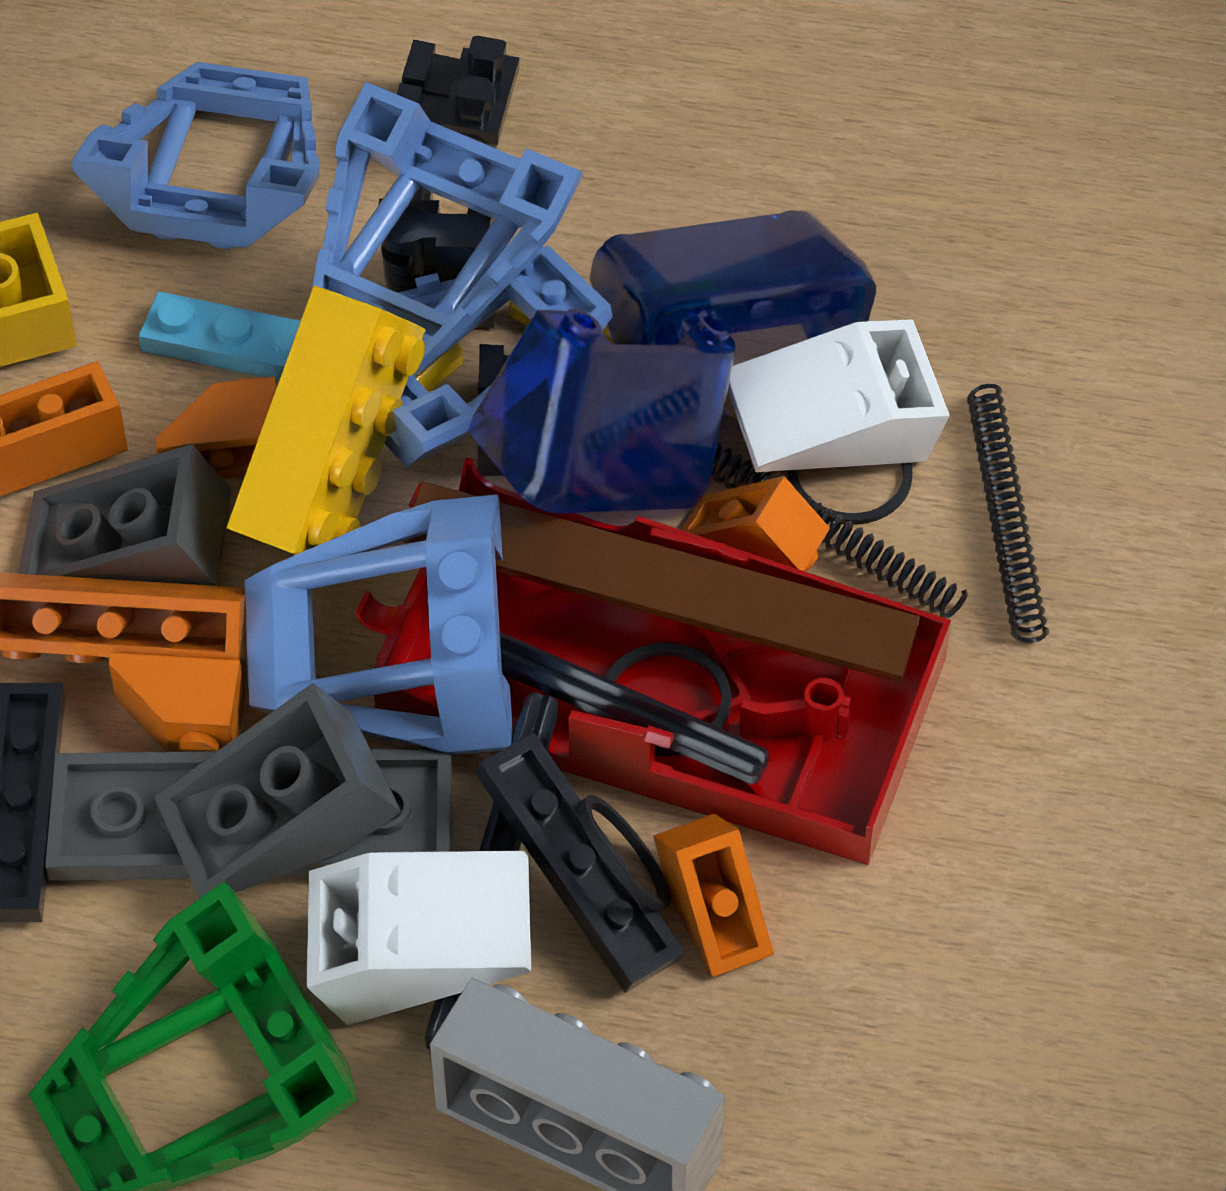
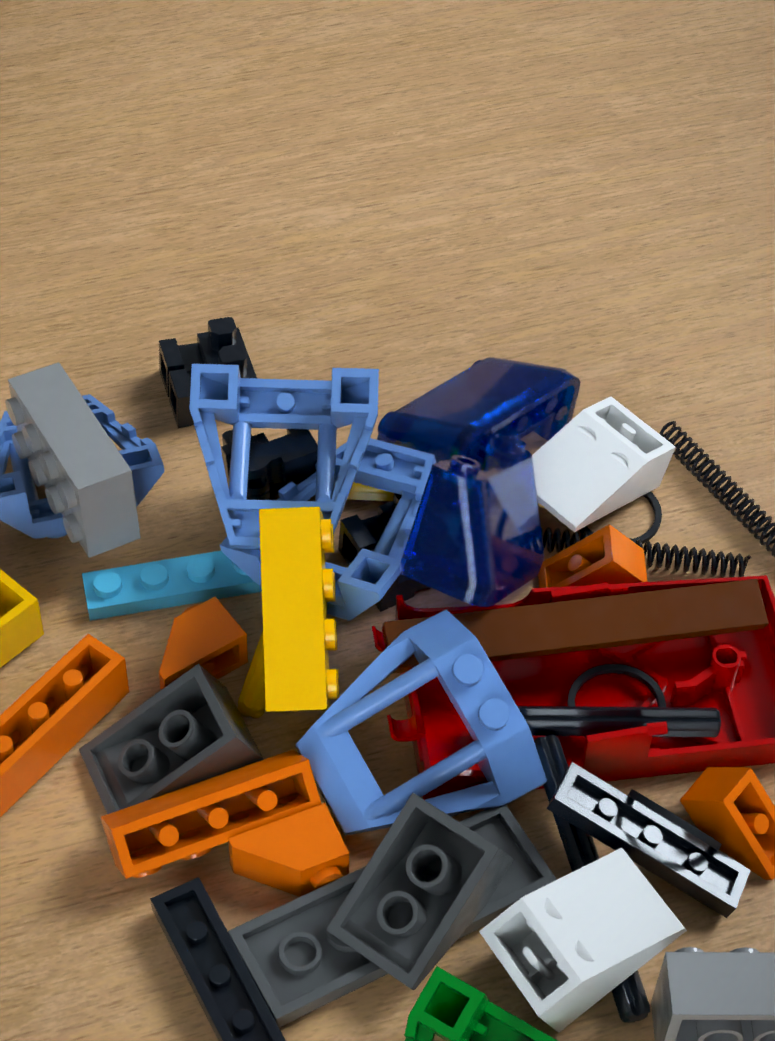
camera: 30 degrees left, 5 degrees down
(199, 149) = (73, 460): none -> light grey brick

